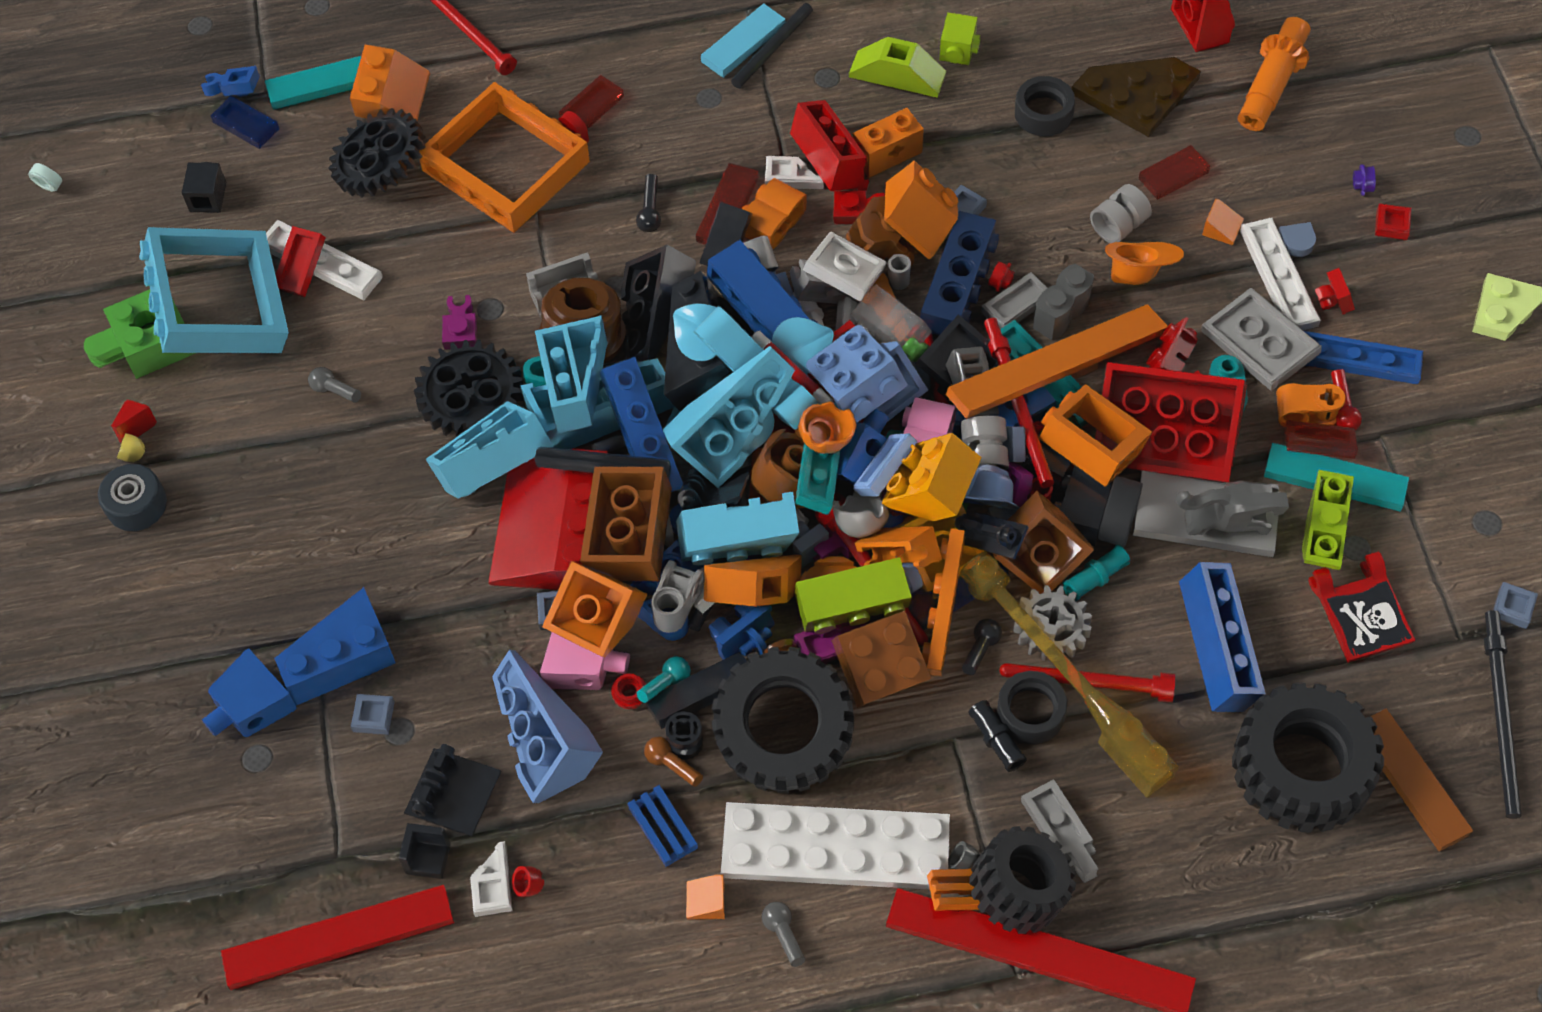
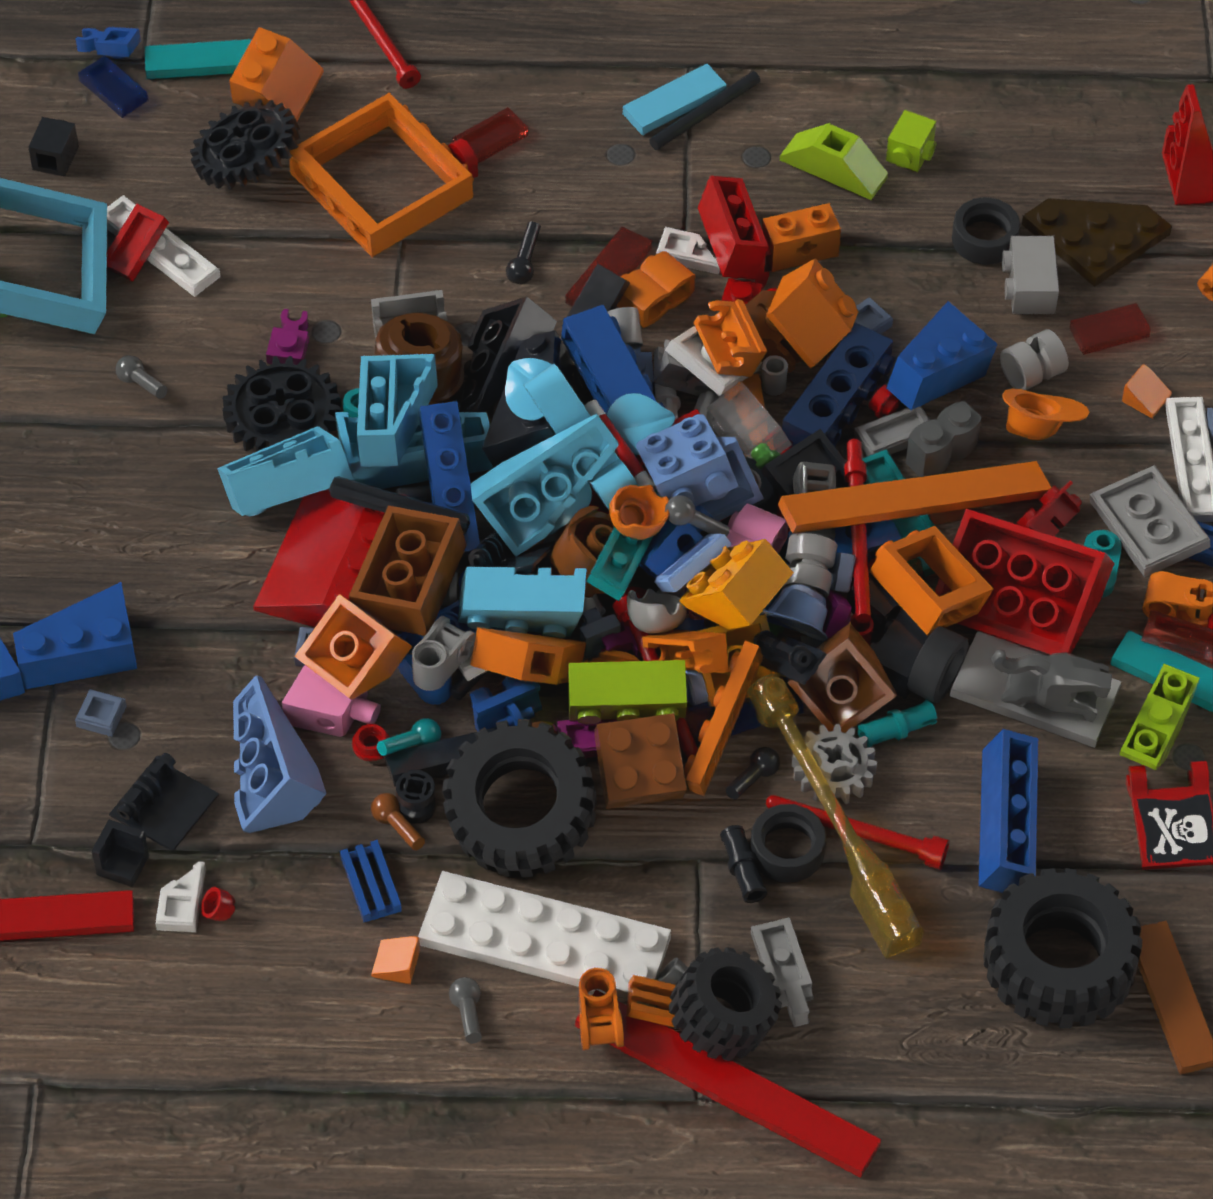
camera: 10 degrees right, 5 degrees down
(858, 247) = (731, 338): none -> orange hinge
(867, 420) = (683, 512): none -> dark grey bar
(913, 918) = (599, 1016): none -> orange piece
(1043, 228) = (941, 358): none -> blue wedge
(1097, 137) = (1032, 275): none -> light grey brick

